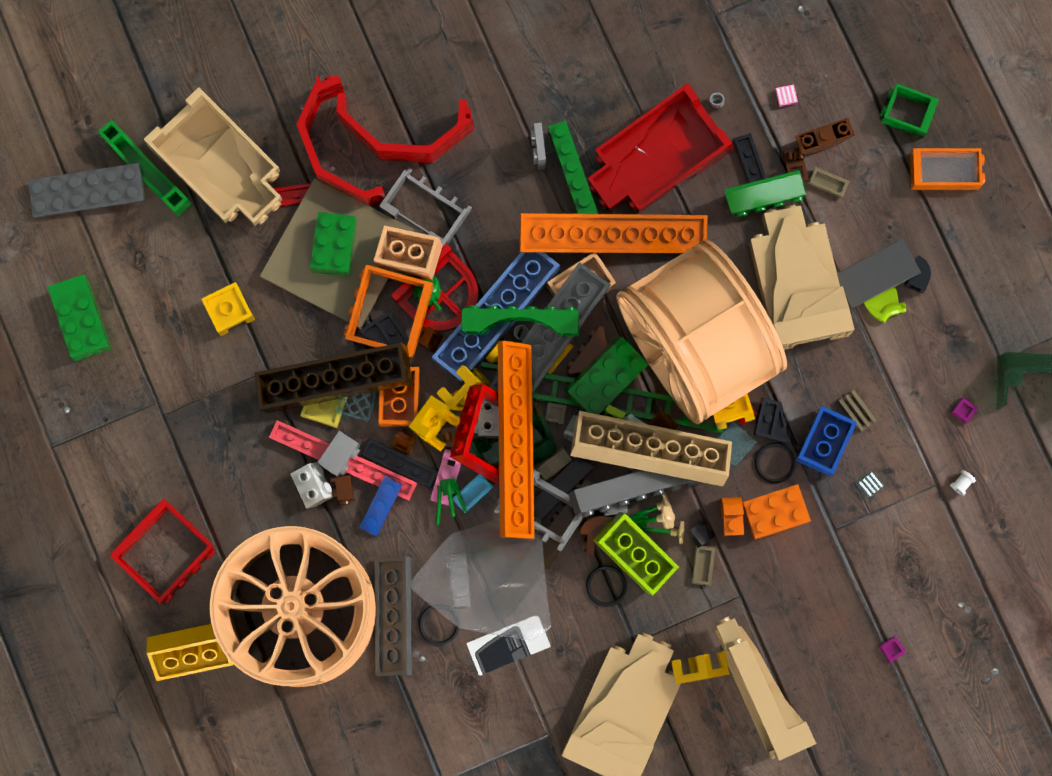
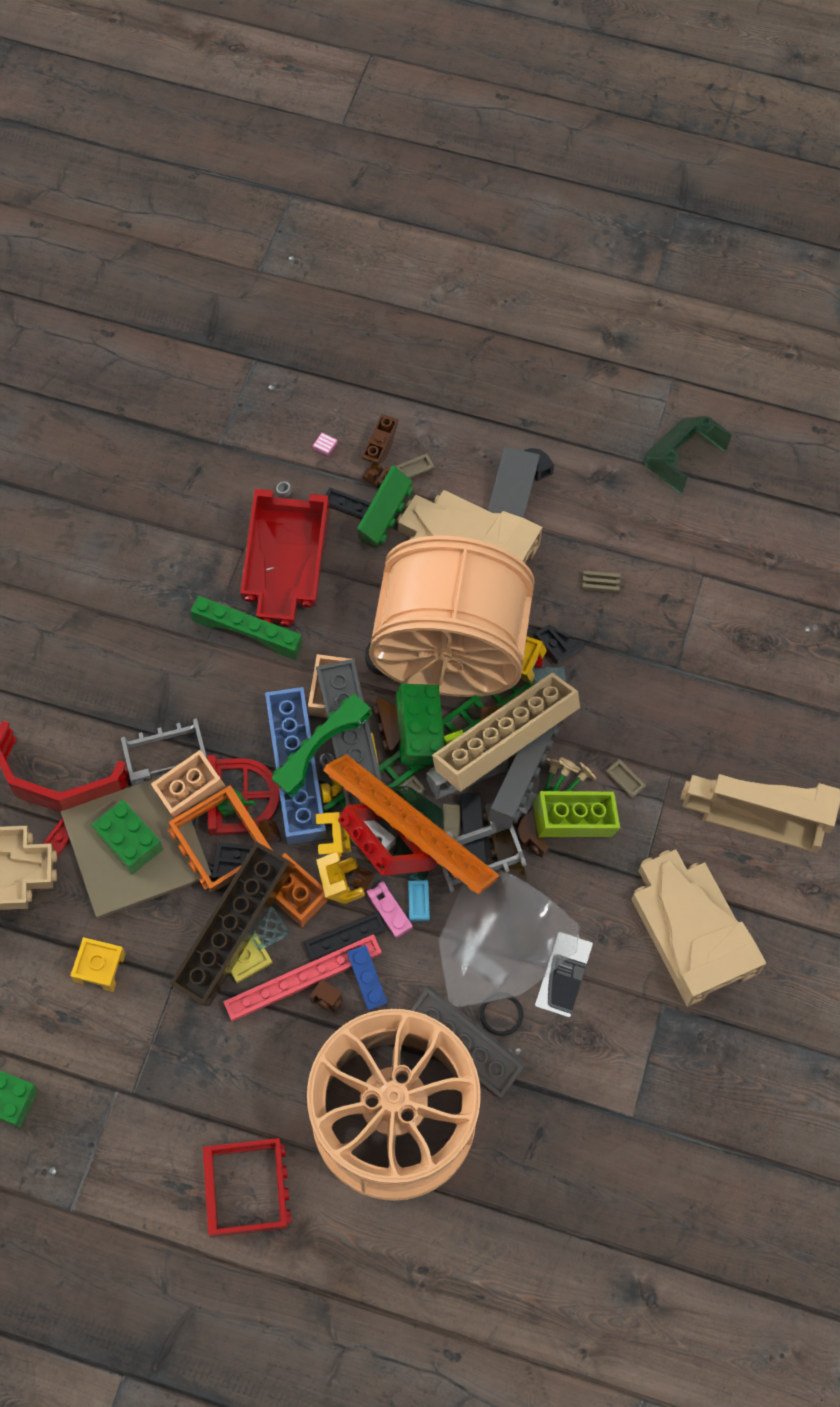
camera: 50 degrees left, 15 degrees down
(185, 652) = (348, 1236): yellow slope -> none
(312, 485) = (298, 1016): white brick -> none
(339, 454) = (296, 972): light grey brick -> none
(403, 152) = (100, 734): red panel -> none
(404, 442) = (332, 918): reddish brown tile -> none
(448, 486) = (400, 911): green plant -> none
(539, 151) = (199, 630): light grey plate -> none
(606, 603) = (576, 878): black tyre -> none
(610, 233) = (313, 632): orange plate -> none
(700, 534) = (600, 760): black tile -> none
(700, 668) = (714, 828): yellow panel -> none
(732, 516) = (604, 722): orange brick -> none
(775, 512) = (629, 694): orange brick -> none
(792, 465) = (587, 682): black tyre -> none
(826, 441) = (606, 617): blue brick -> none
(870, 484) = (664, 616): tile -> none
(885, 305) = (540, 502): lime arm -> none
(892, 649) = (803, 700): magenta tile -> none
(913, 95) = (417, 360): green window -> none
(946, 169) = (477, 387): window -> none
(963, 482) = (717, 554): white bush -> none
(964, 410) = (664, 513): magenta tile -> none

